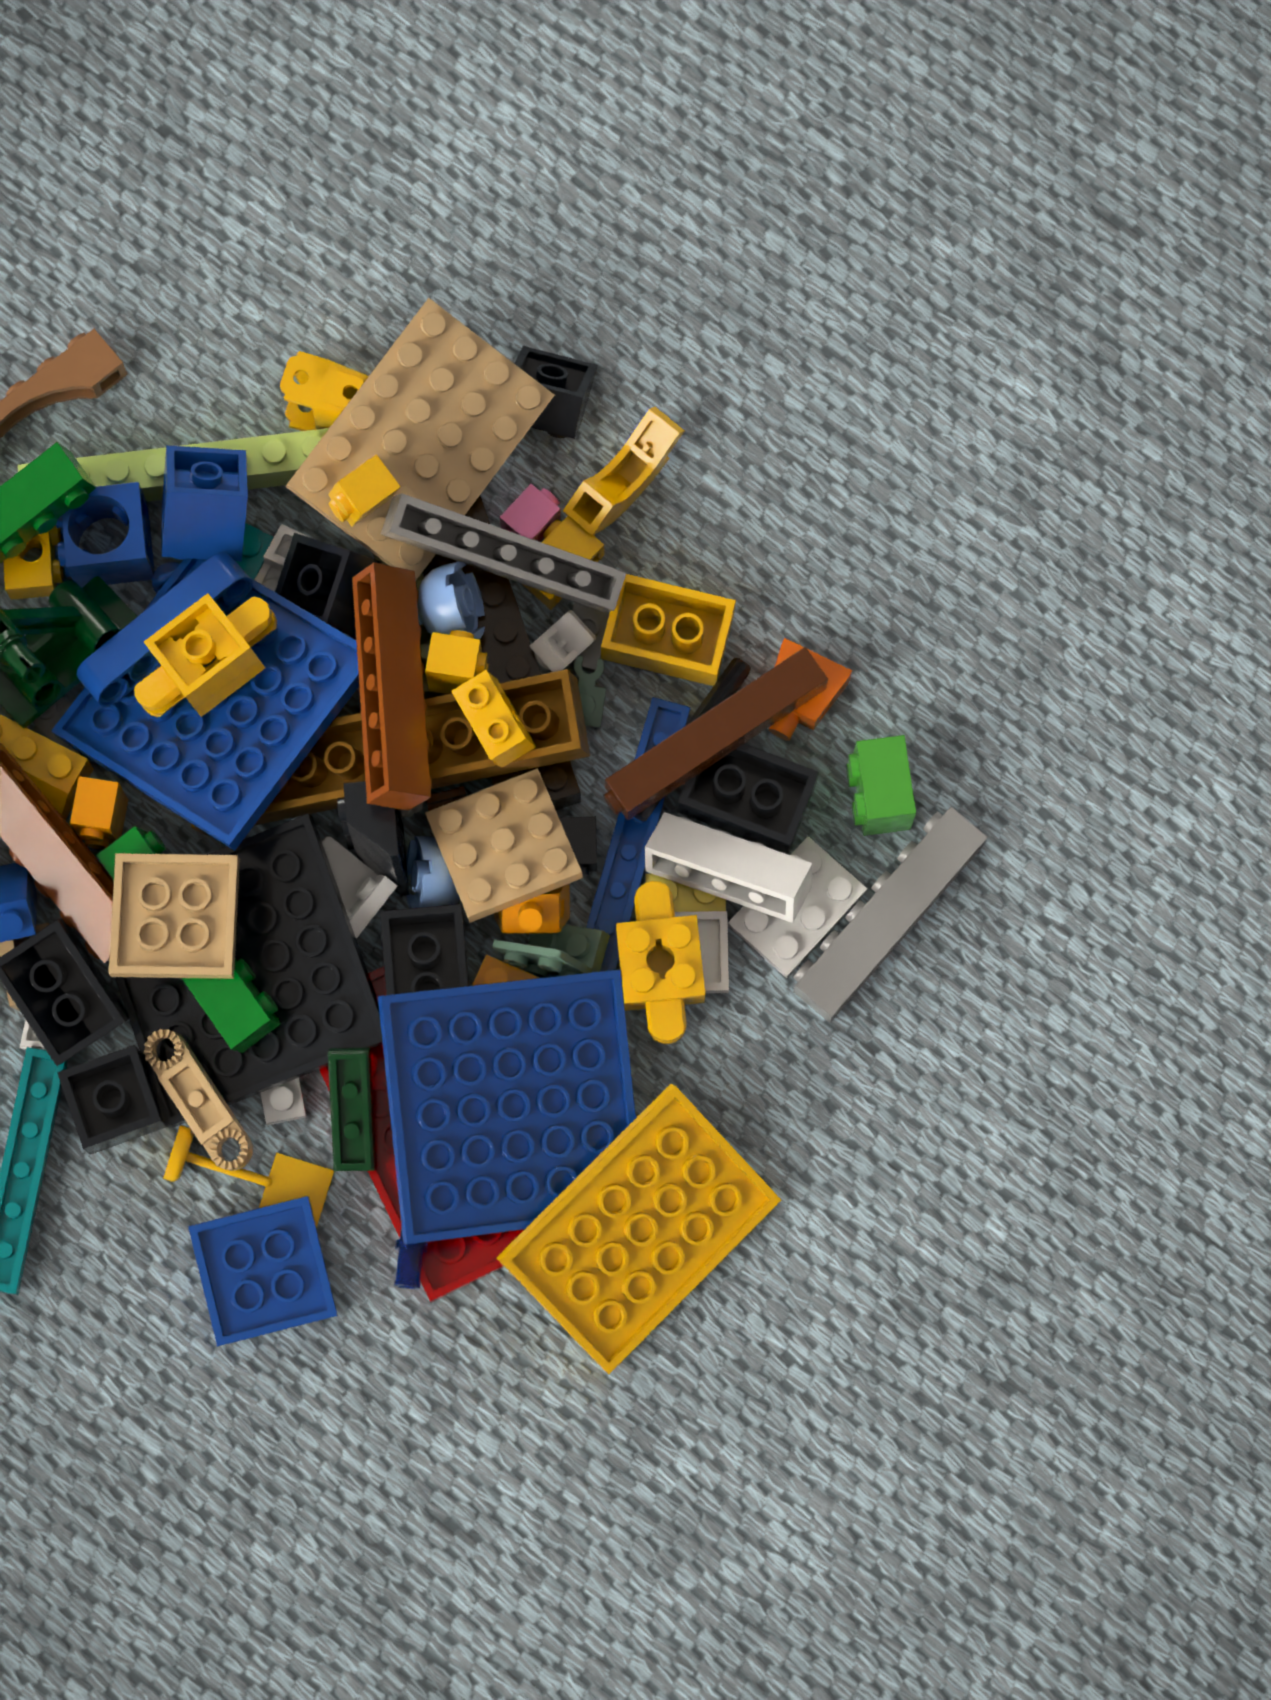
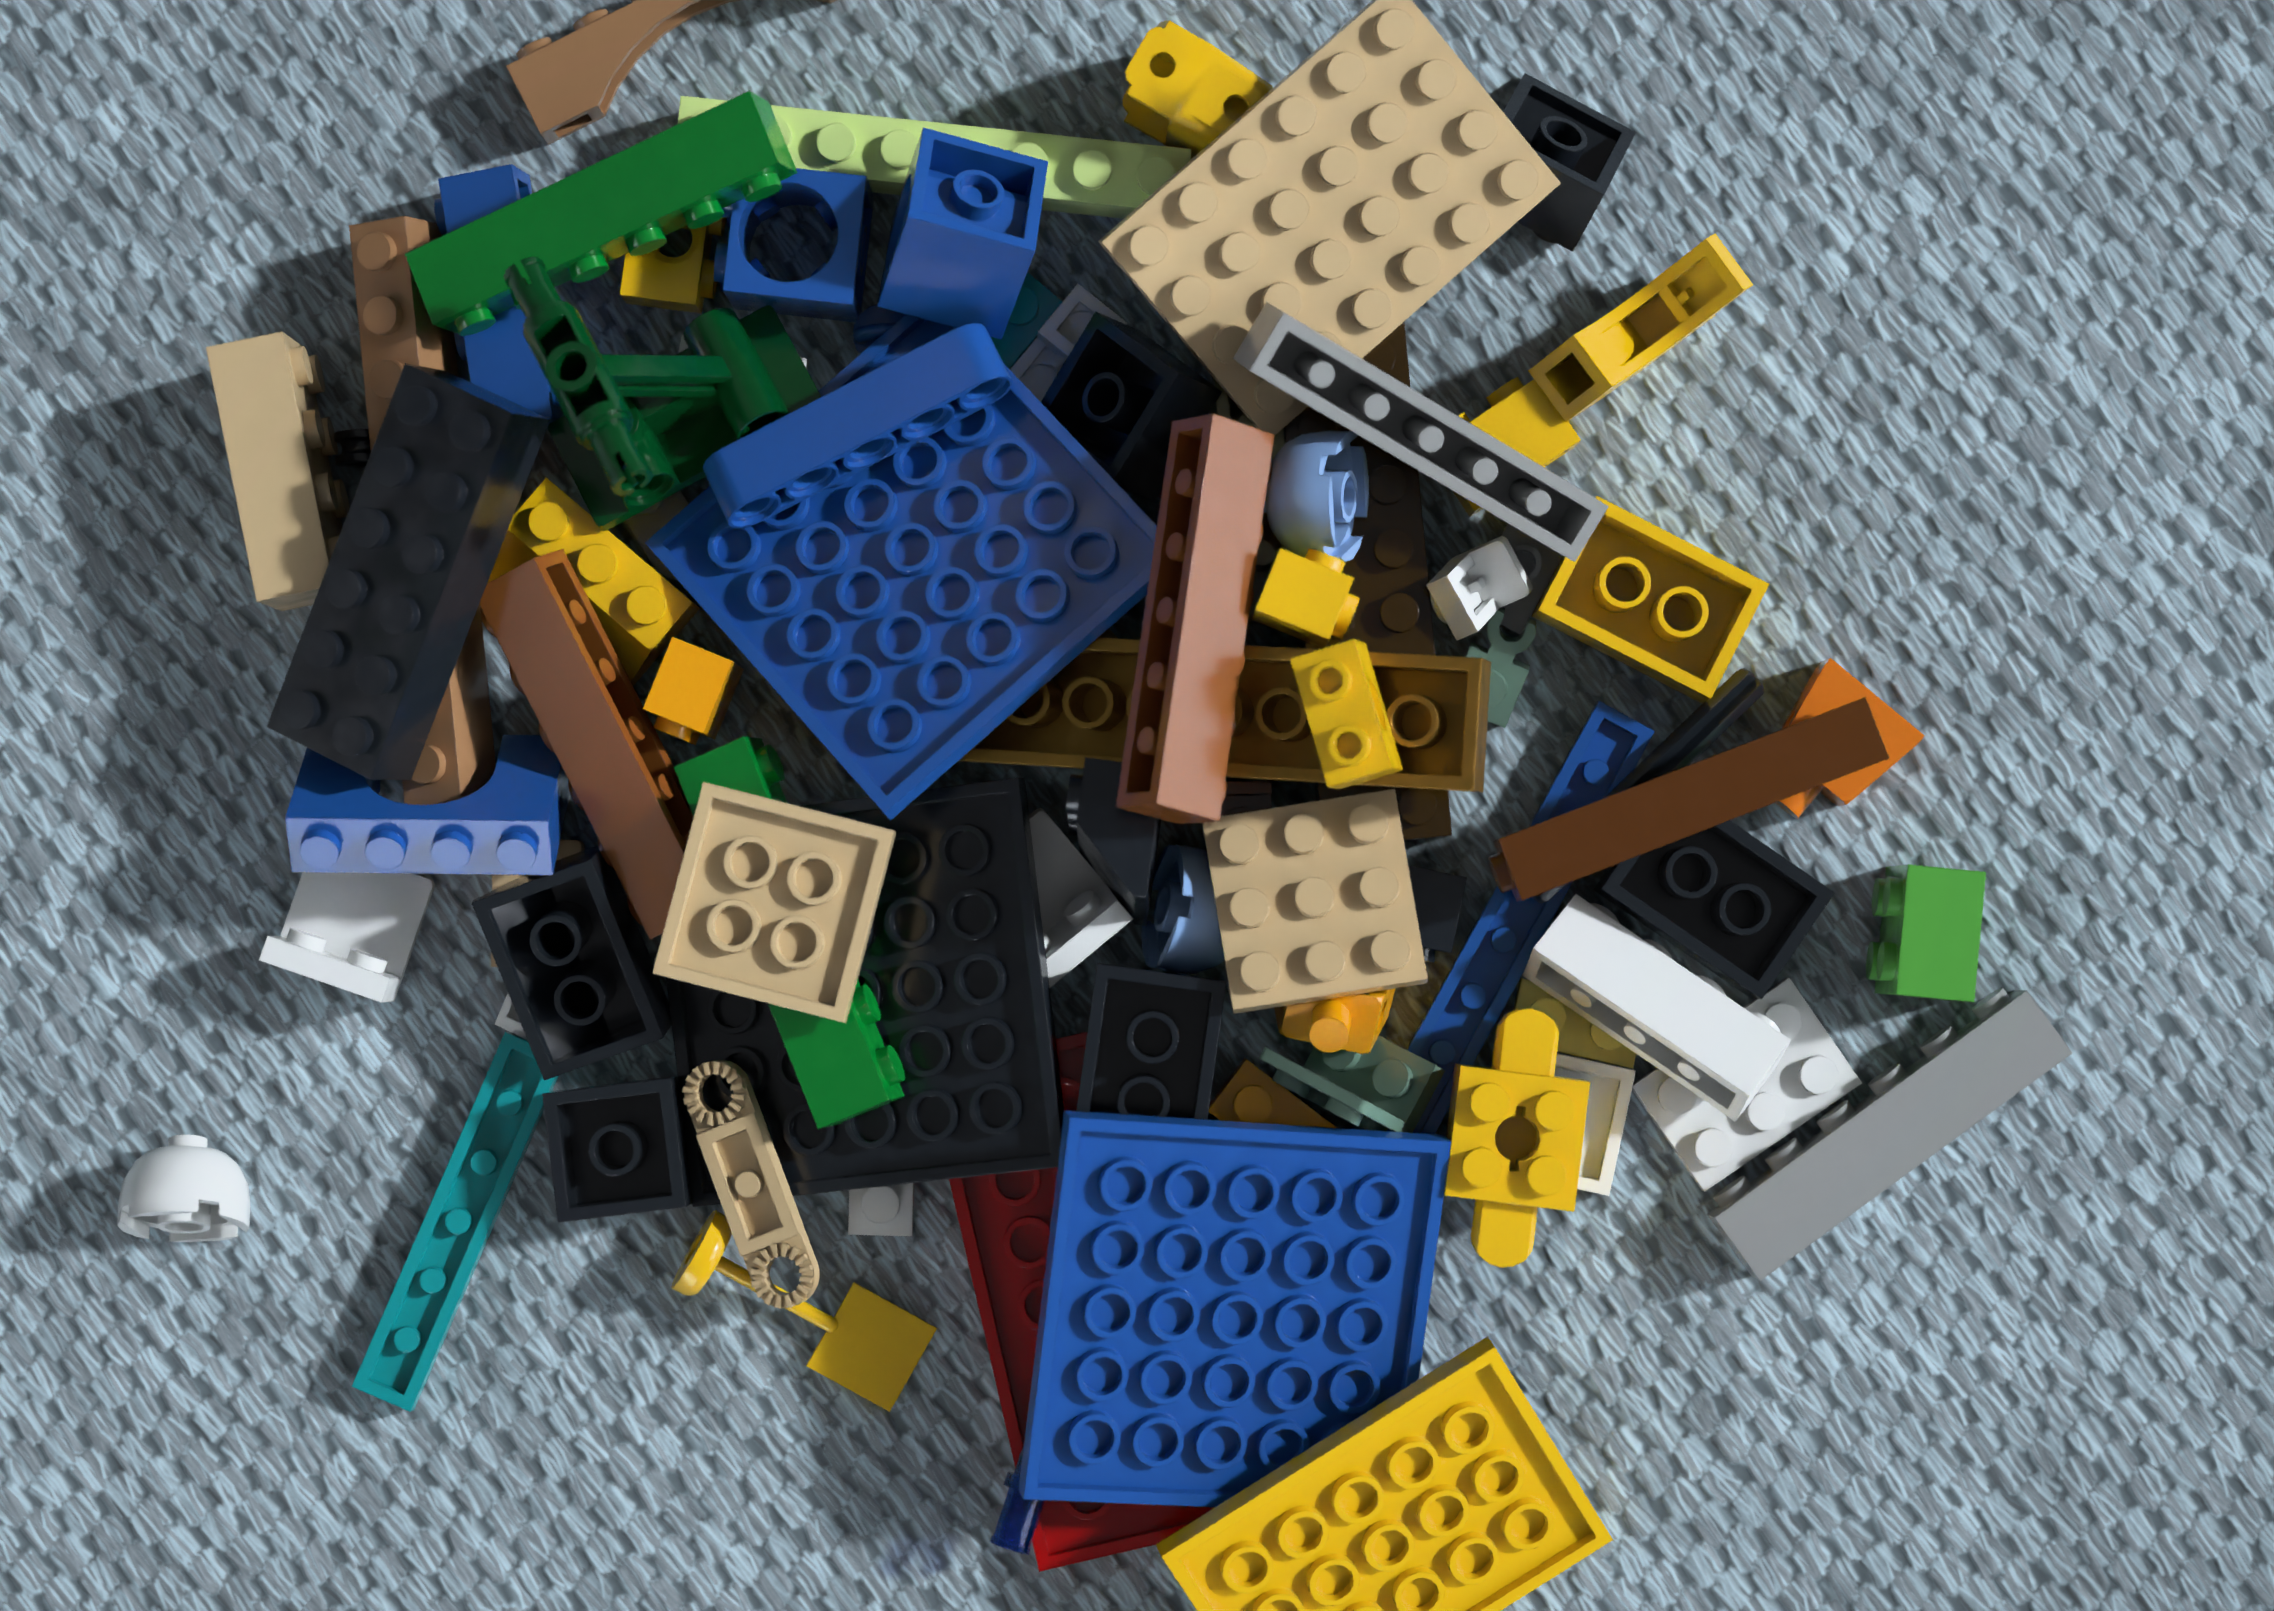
camera: 15 degrees right, 10 degrees up
(193, 642) = (897, 471): yellow brick -> none
(262, 1271) = (794, 1464): blue plate -> none
(351, 1109) = (984, 1255): dark green tile -> none
(362, 491) = (1221, 291): yellow brick -> none
(531, 513) = (1475, 362): bright pink brick -> none

